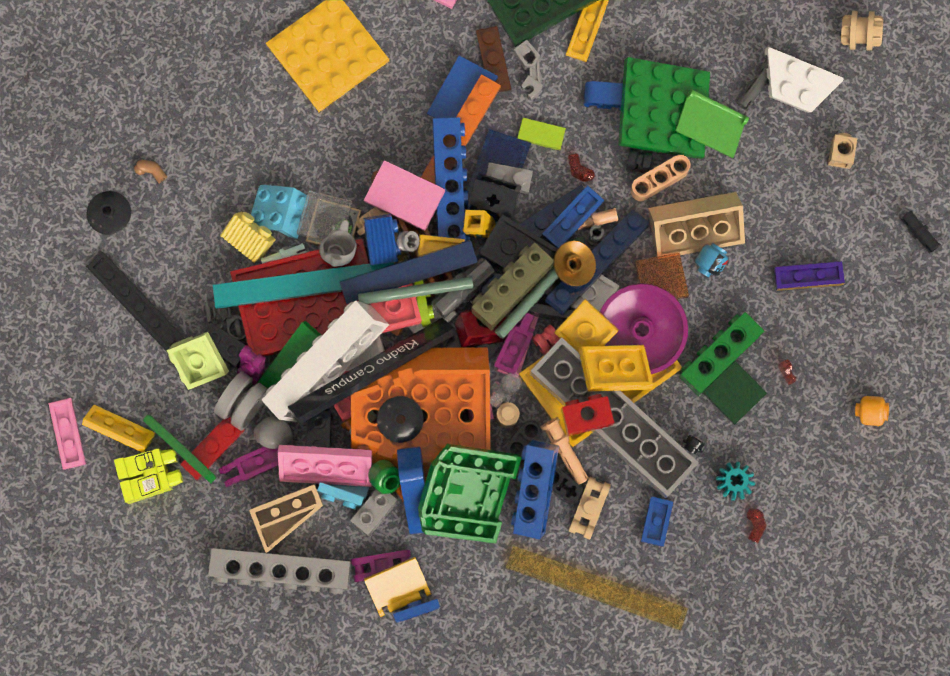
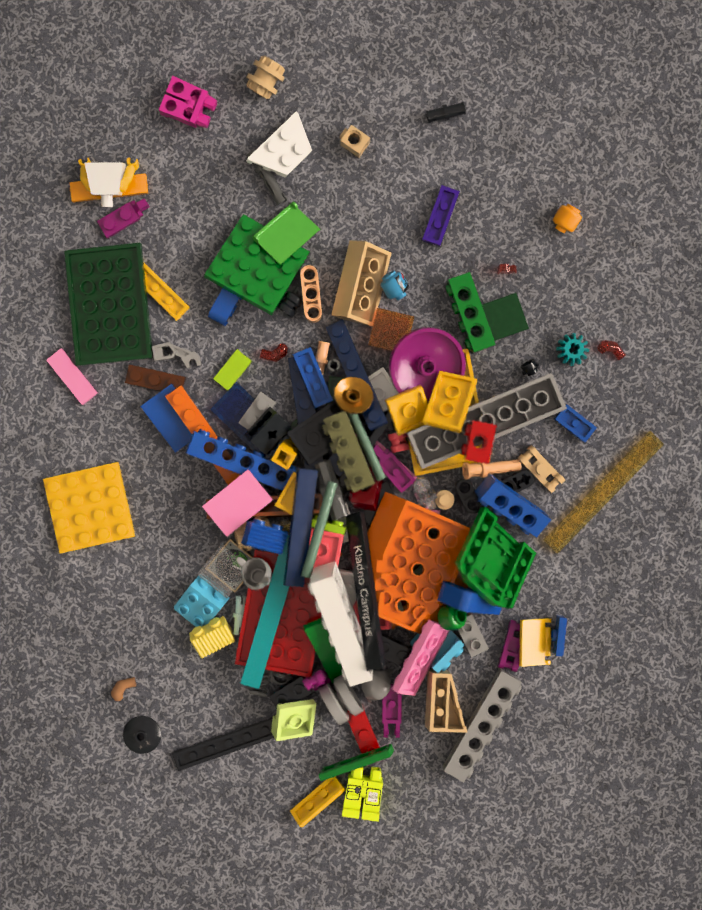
camera: 65 degrees left, 10 degrees up
(67, 433) = (302, 840): bright pink tile -> none
(387, 419) = (405, 582): black dish -> none
(413, 242) = (274, 521): light grey bush -> none

